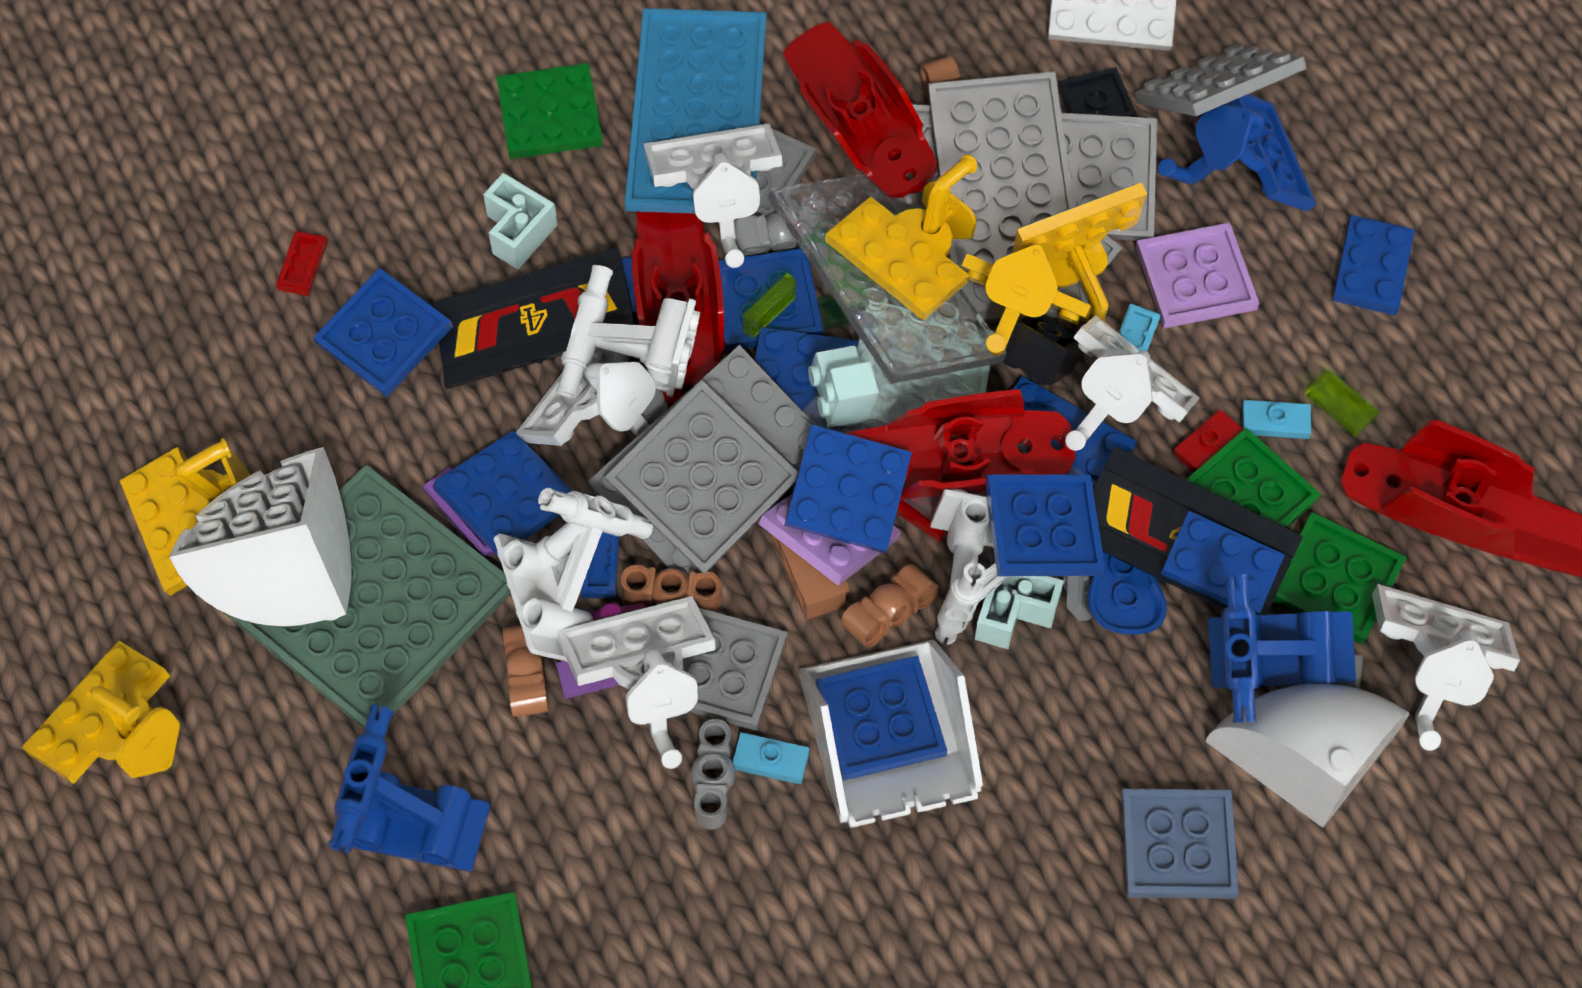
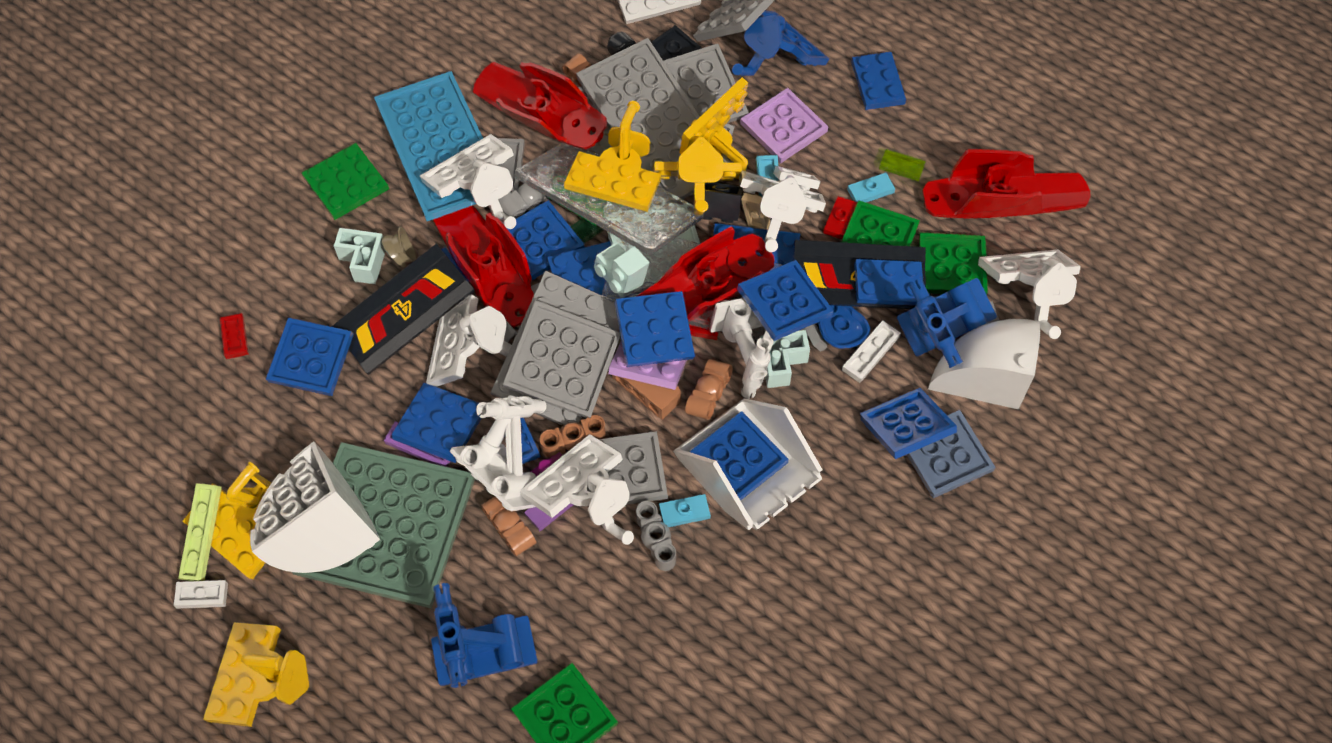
camera: 25 degrees left, 0 degrees up
(96, 585) = (201, 594): none -> white plate
(131, 505) = (200, 532): none -> yellowish green tile
(570, 232) = (399, 248): none -> dark tan piece
(660, 347) = (500, 291): white plate -> none
(769, 306) = (546, 242): clear neon green tile -> none
(1020, 62) = (619, 42): none -> black head
(1077, 367) = (753, 213): none -> tan plate
(1143, 775) = (908, 423): none -> blue plate
(1149, 652) = (871, 351): none -> white plate
(1179, 364) = (804, 180): none -> white plate

